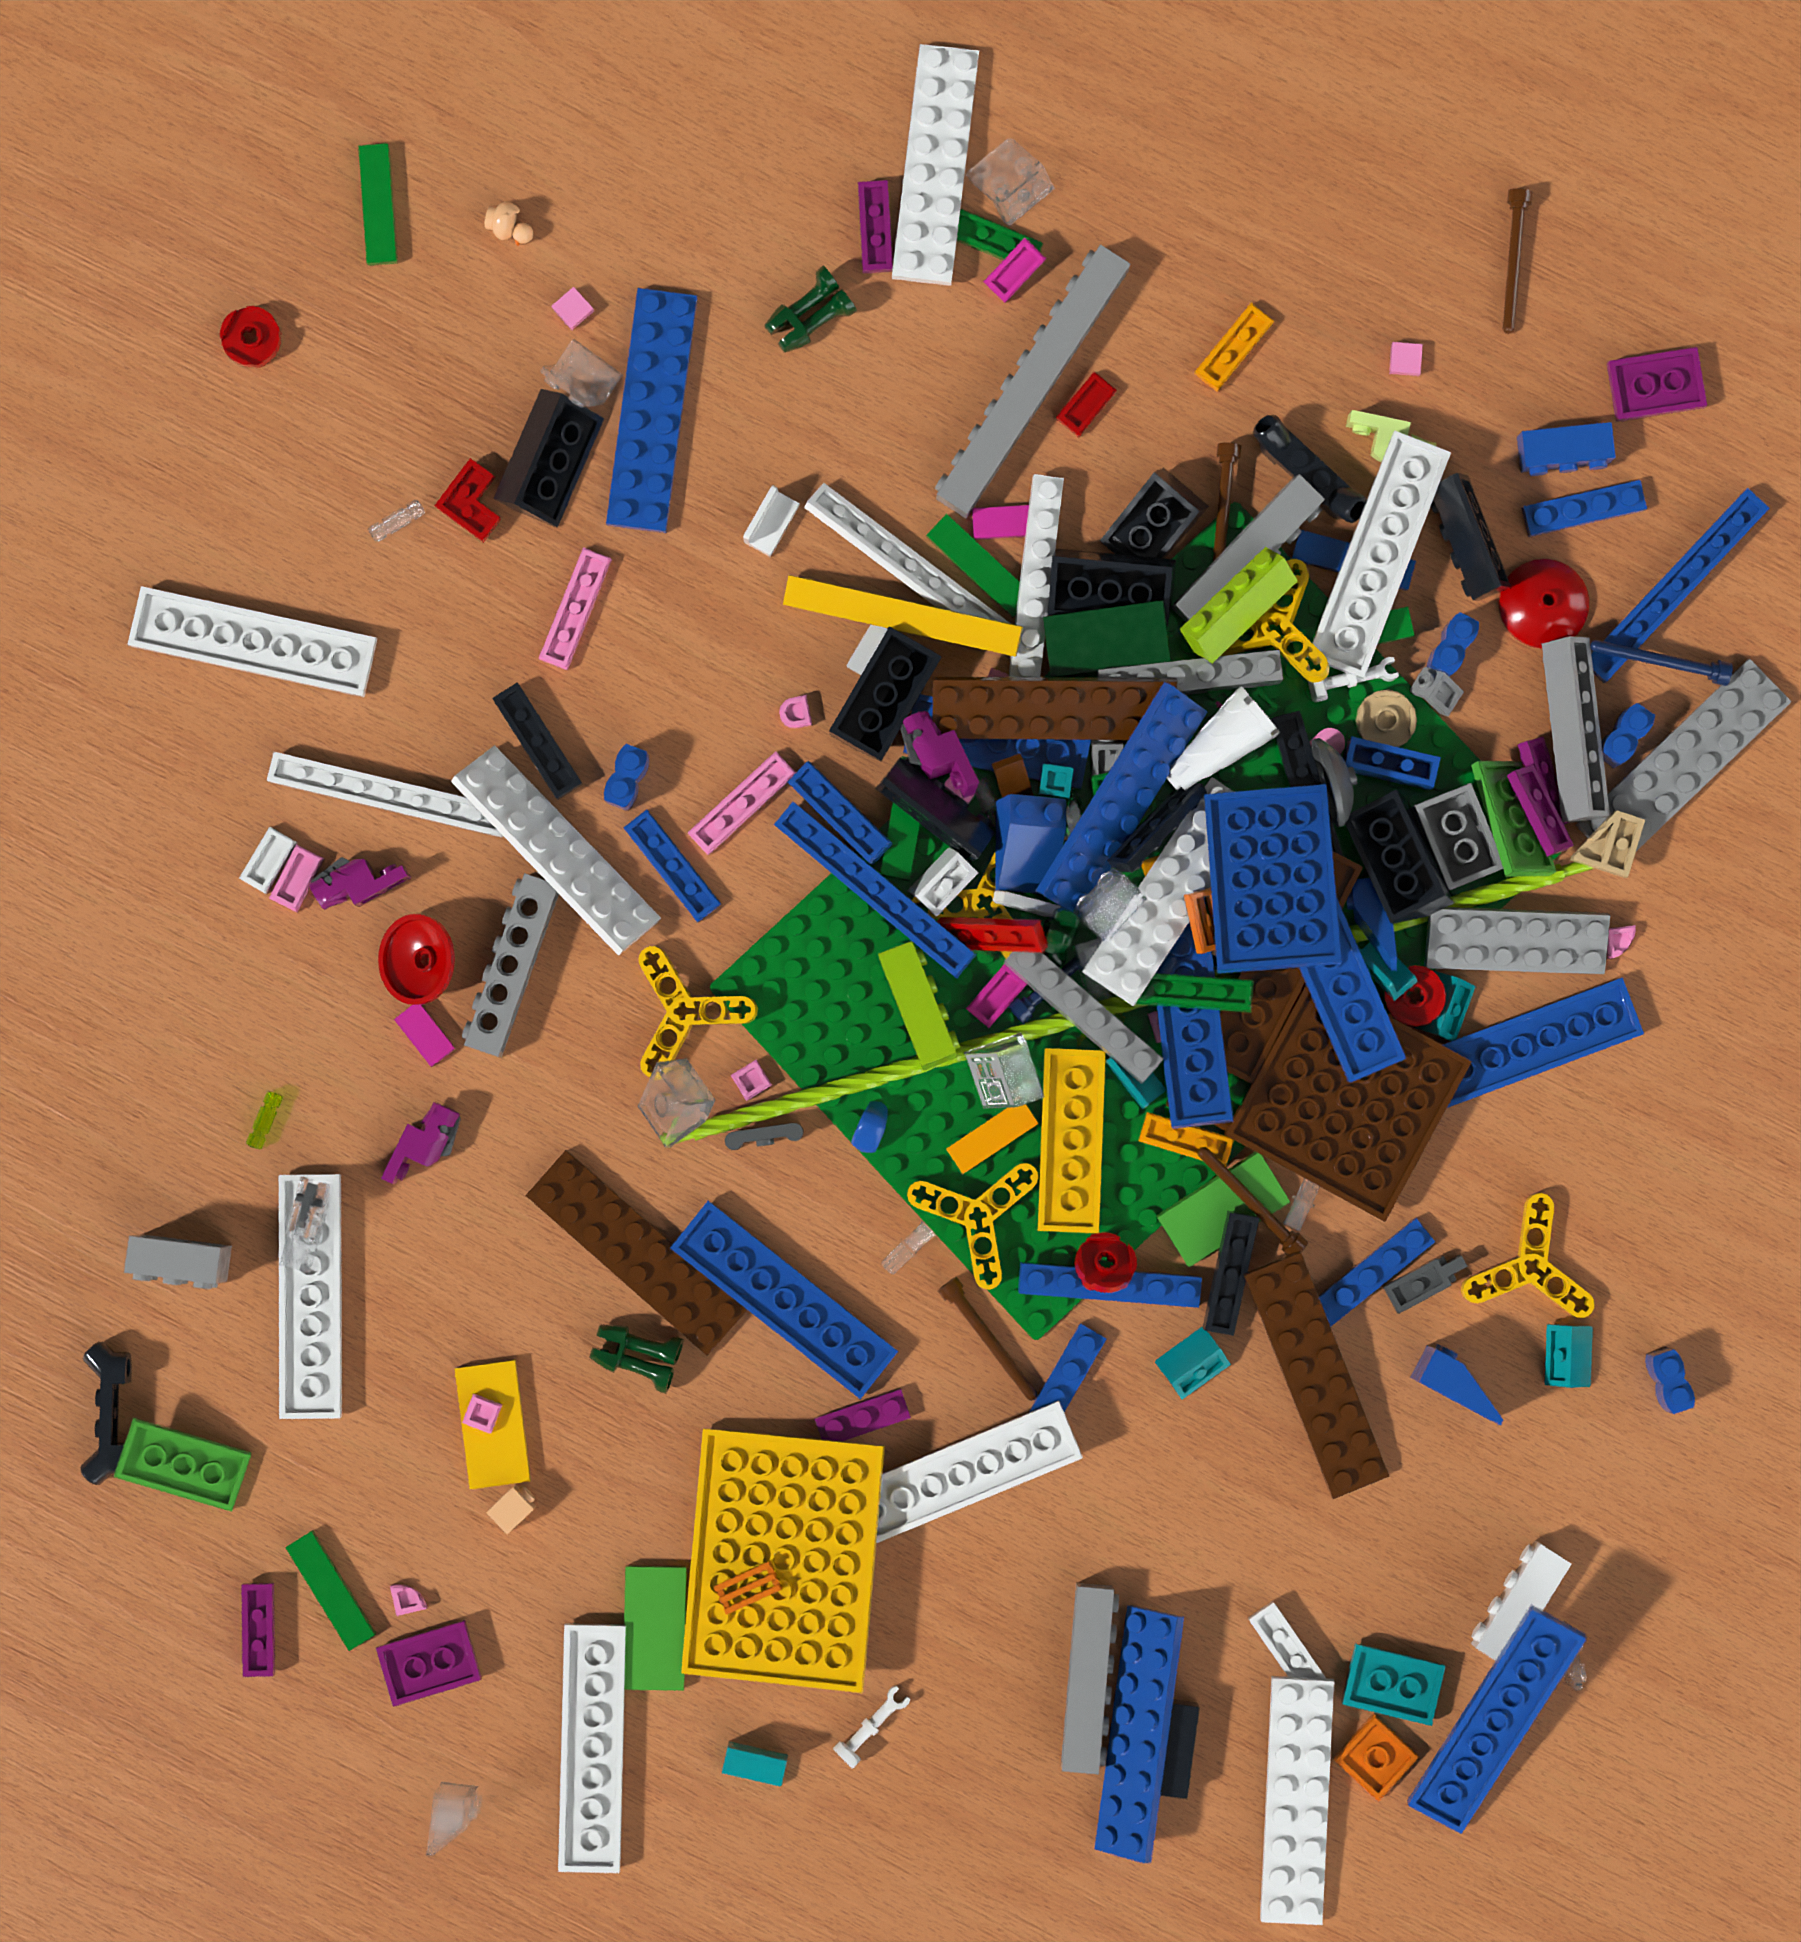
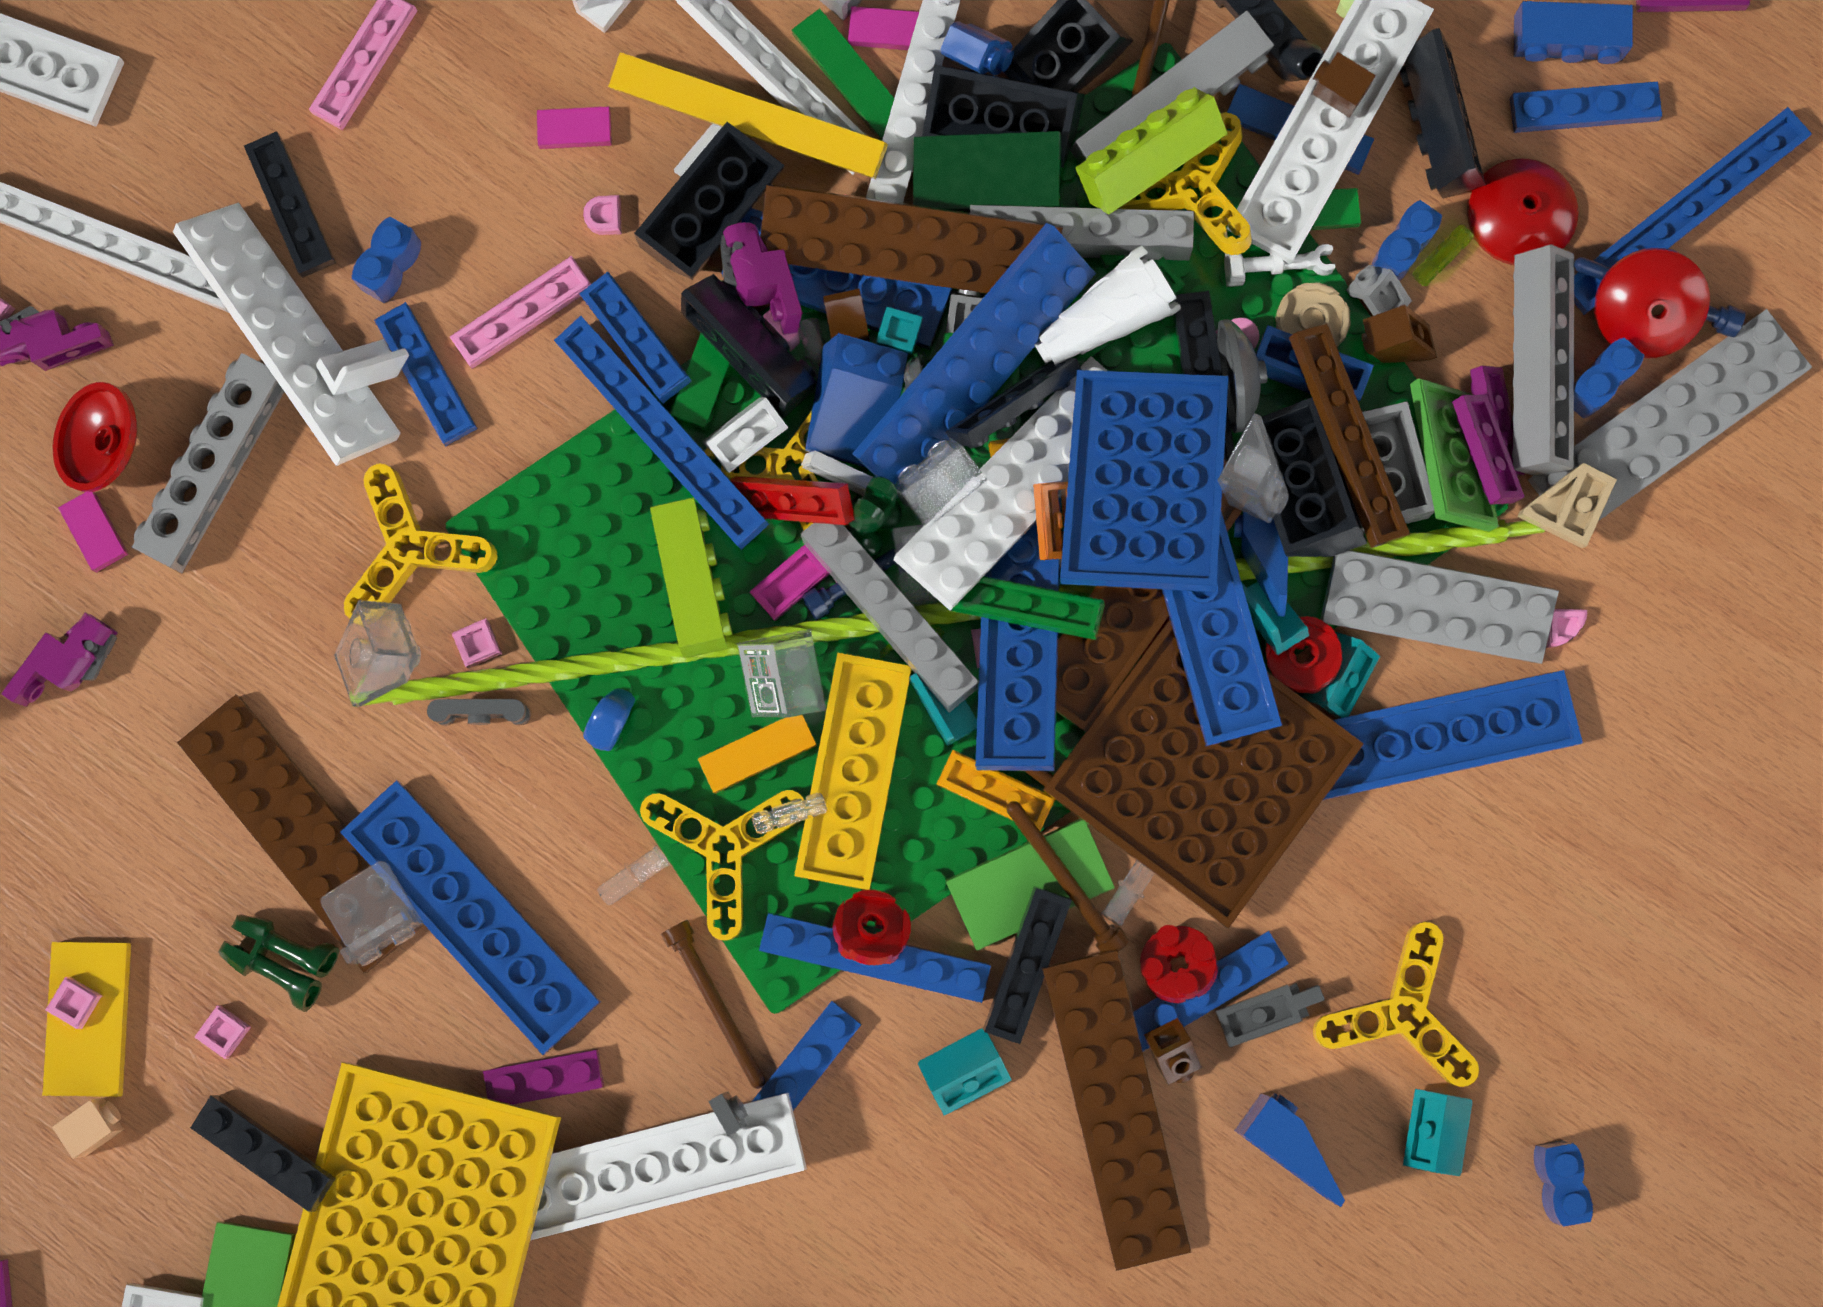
camera: 15 degrees right, 5 degrees down
(602, 1418) = (222, 1032): none -> bright pink tile
(621, 869) = (361, 366): none -> white panel
(653, 1508) = (263, 1153): none -> black plate
(708, 1309) = (370, 913): none -> clear bracket
(724, 1598) = (329, 1280): orange tile -> none
(759, 642) = (574, 127): none -> dark pink tile
(1018, 1422) = (729, 1112): none -> dark grey plate
(1027, 1182) = (789, 813): none -> clear axle
(1084, 535) = (977, 48): none -> blue brick
(1357, 1269) = (1185, 983): none -> red plate
(1358, 1331) = (1177, 1060): none -> reddish brown brick
(1359, 863) = (1253, 474): none -> clear slope
(1385, 528) = (1342, 83): none -> reddish brown brick
(1428, 819) = (1349, 435): none -> reddish brown plate
(1457, 726) = (1398, 336): none -> reddish brown slope
(1484, 650) = (1443, 255): none -> clear neon green axle
(1655, 653) = (1638, 285): none -> red dish

